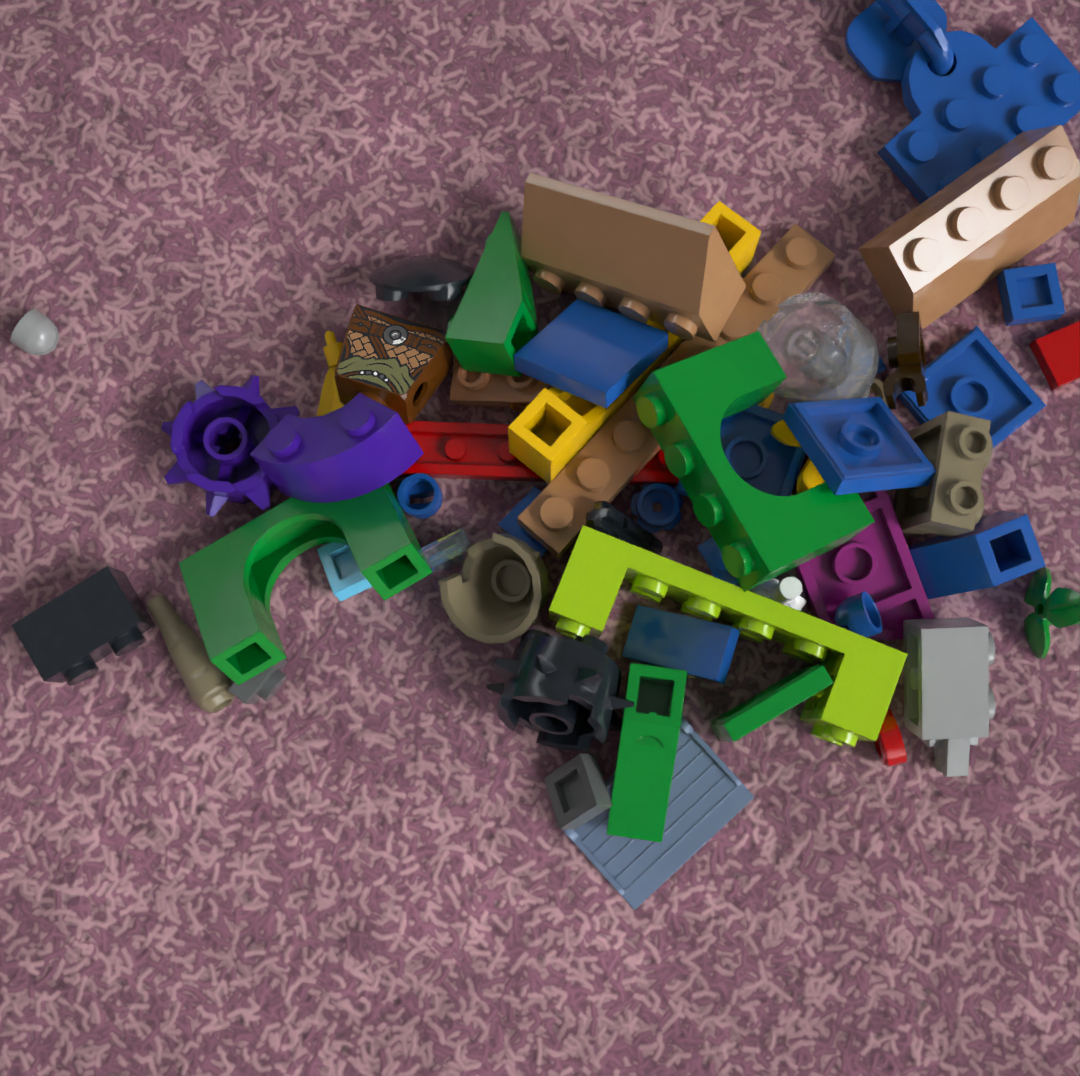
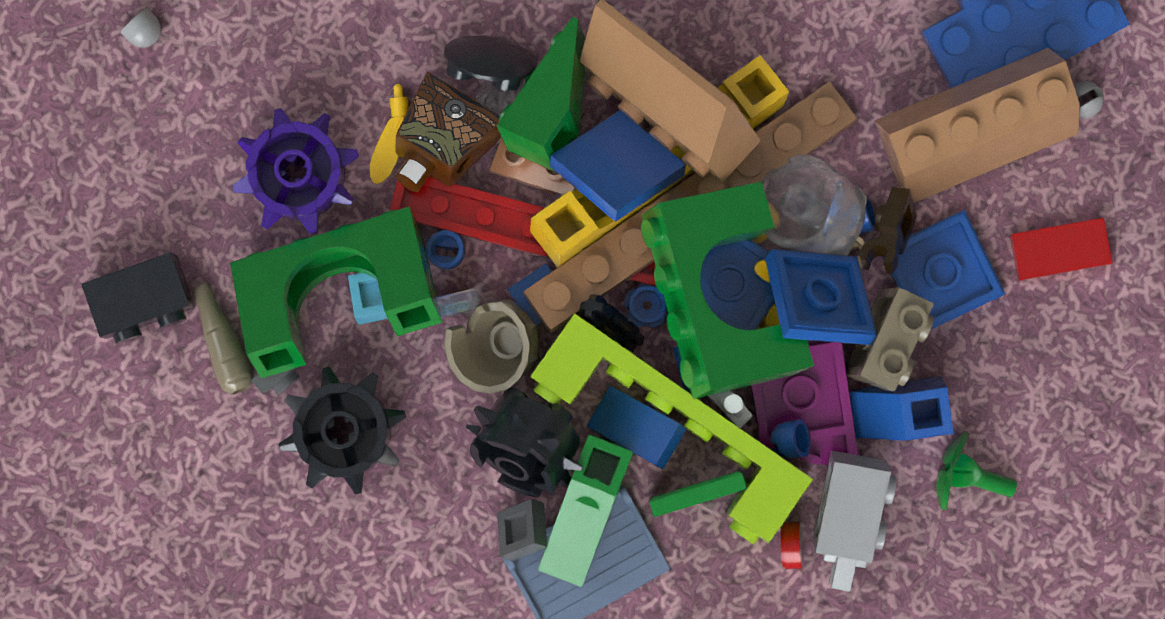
camera: 15 degrees right, 5 degrees up
(317, 712) = (319, 415): none -> black brick
(337, 452) = (386, 205): dark purple brick -> none
(1030, 294) = (1018, 193): blue plate -> none

